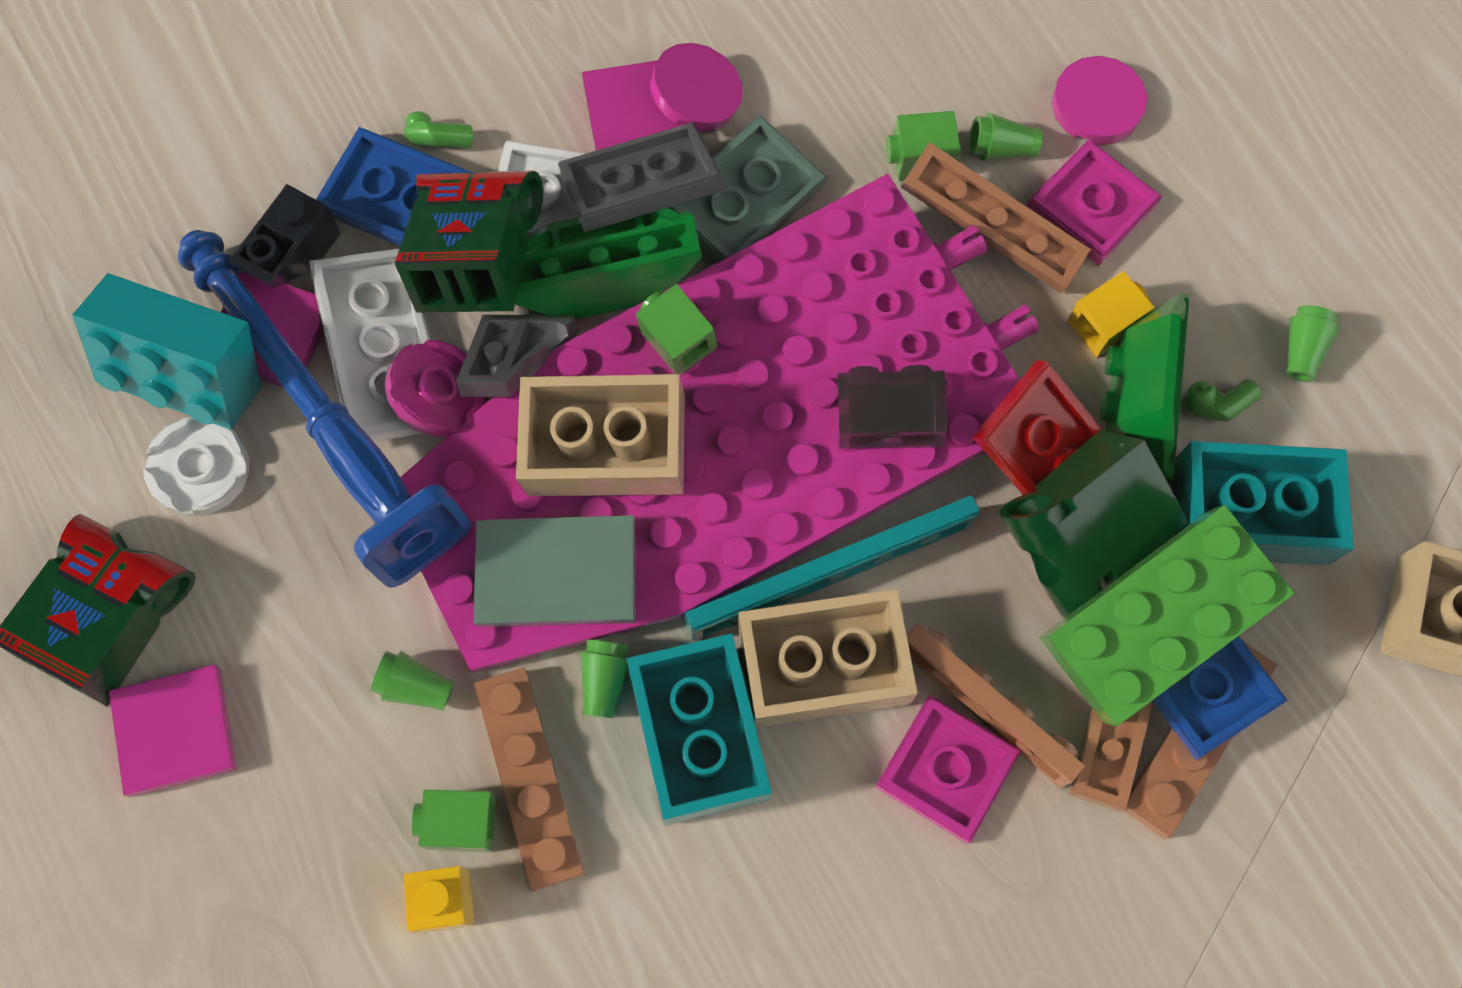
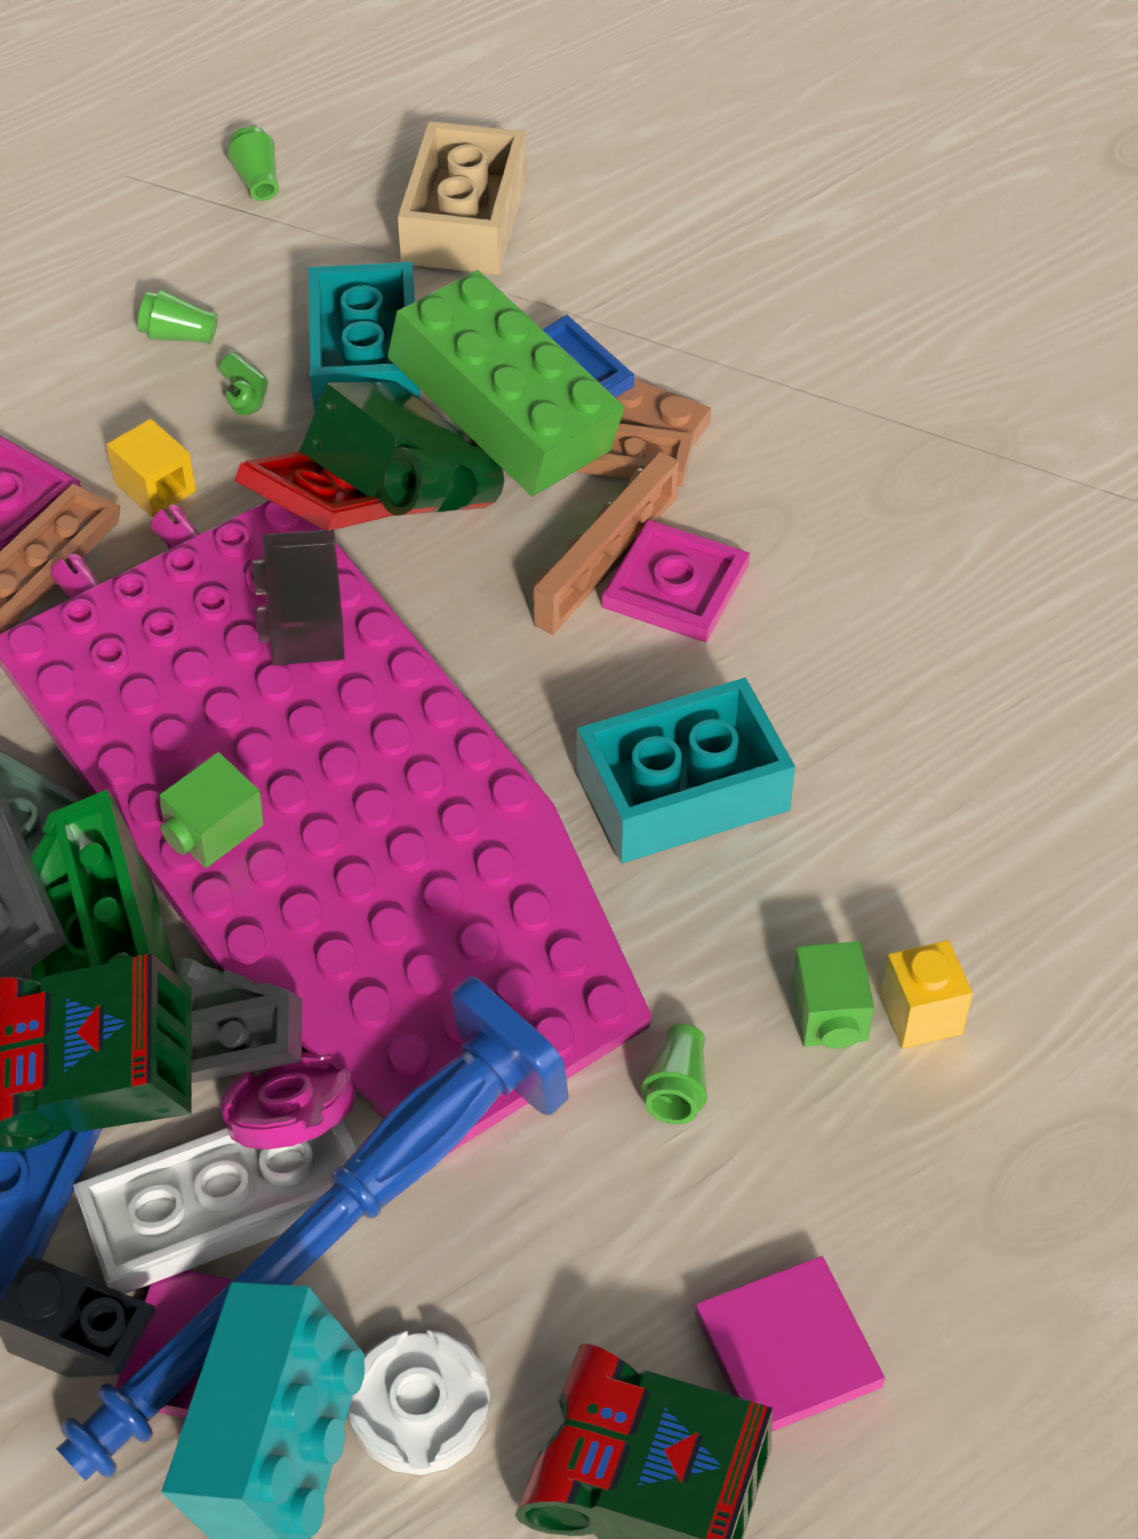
camera: 95 degrees left, 20 degrees down
(529, 779) = (760, 945): nougat plate -> none
(555, 571) = (526, 917): sand green tile -> none
(601, 435) = (359, 863): tan brick -> none
(603, 676) = (633, 879): bright green cone -> none
(826, 658) = (578, 657): tan brick -> none
(833, 567) = (476, 677): teal tile -> none
(1148, 381) = (229, 415): green wedge -> none

